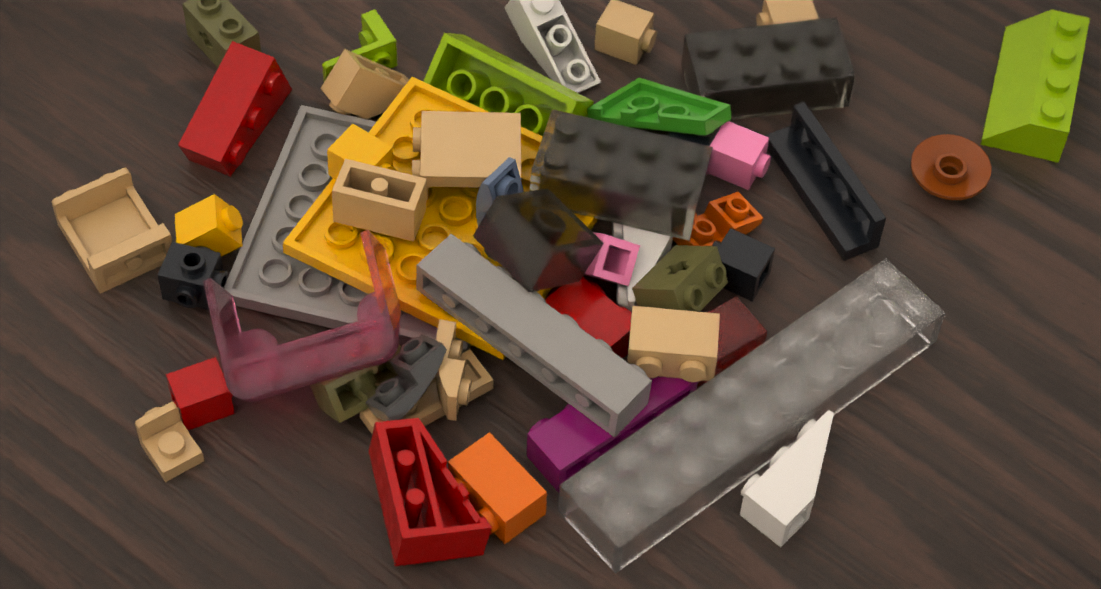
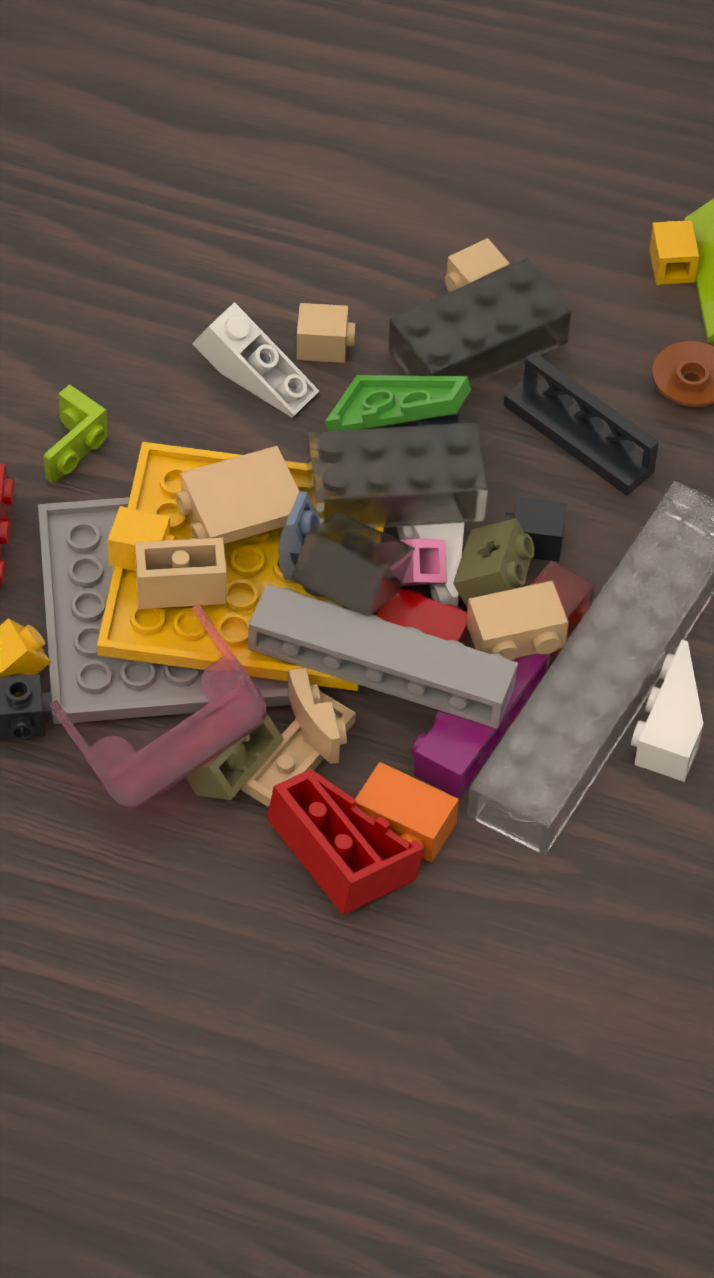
camera: 20 degrees left, 0 degrees up
(168, 441) = (69, 873): tan bracket -> none
(200, 393) = (80, 816): red brick -> none
(361, 86) = (93, 467): tan slope -> none
(416, 369) = (287, 731): dark grey slope -> none
(499, 83) = (231, 423): lime slope -> none
(721, 215) = (504, 484): orange slope -> none
(739, 155) = (494, 421): bright pink brick -> none
(980, 53) = (674, 252): none -> yellow brick

